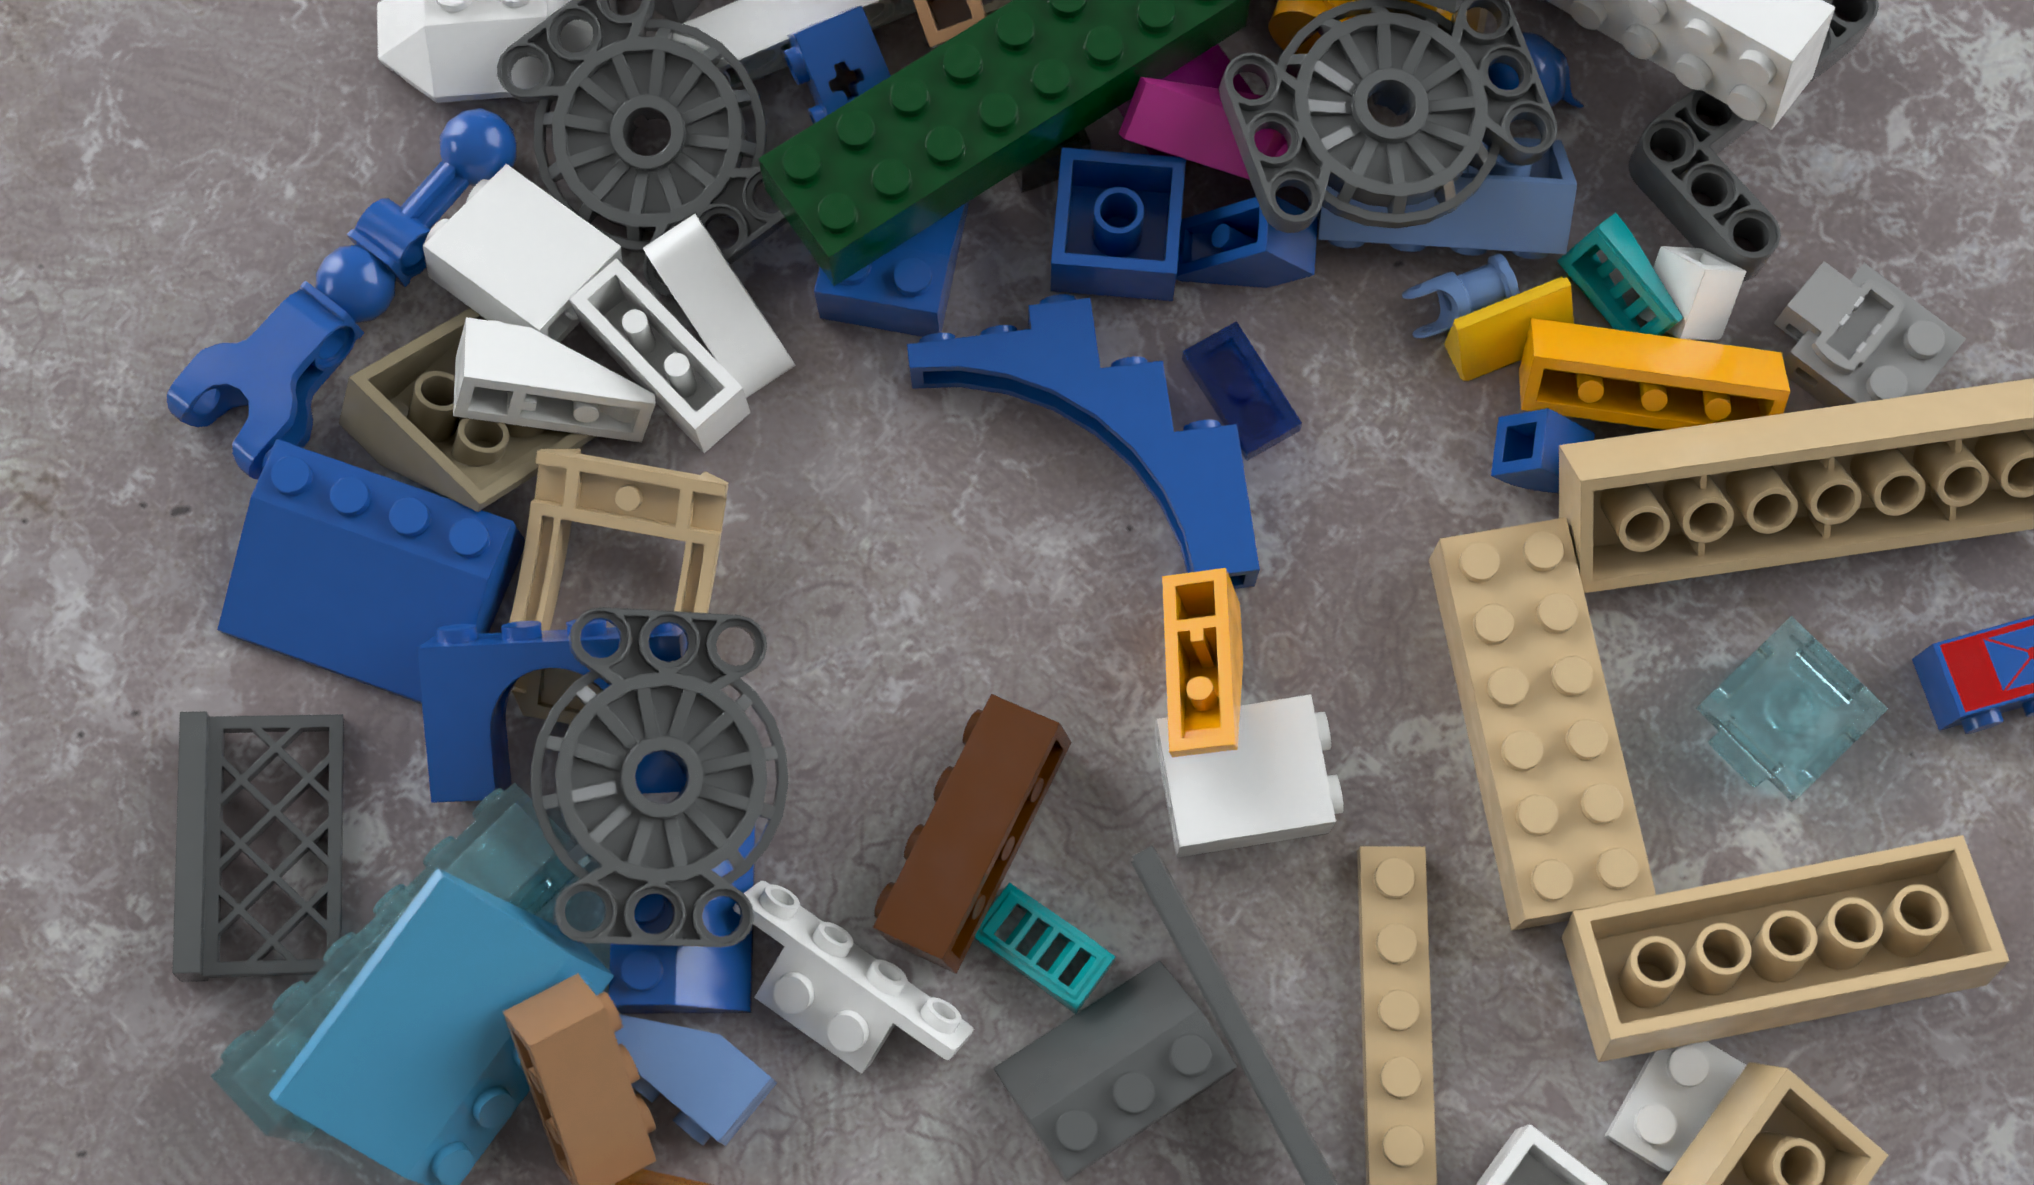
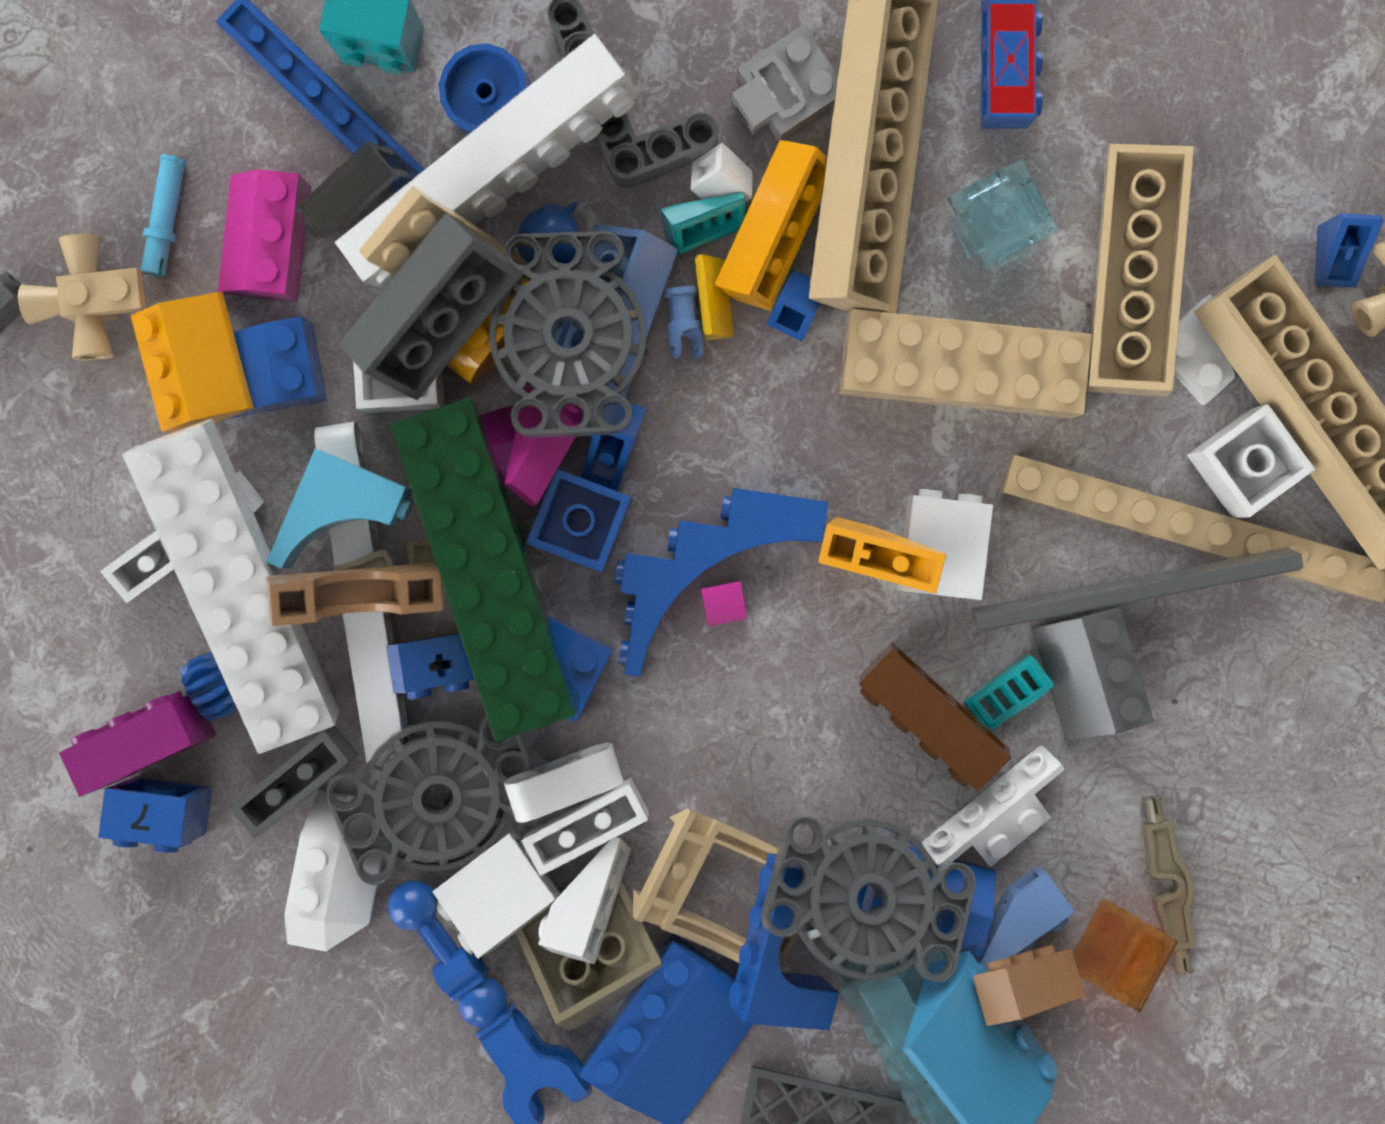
camera: 75 degrees left, 15 degrees up
(1056, 467) = (724, 603): none -> dark pink brick
(1242, 390) = (705, 475): clear blue plate -> none

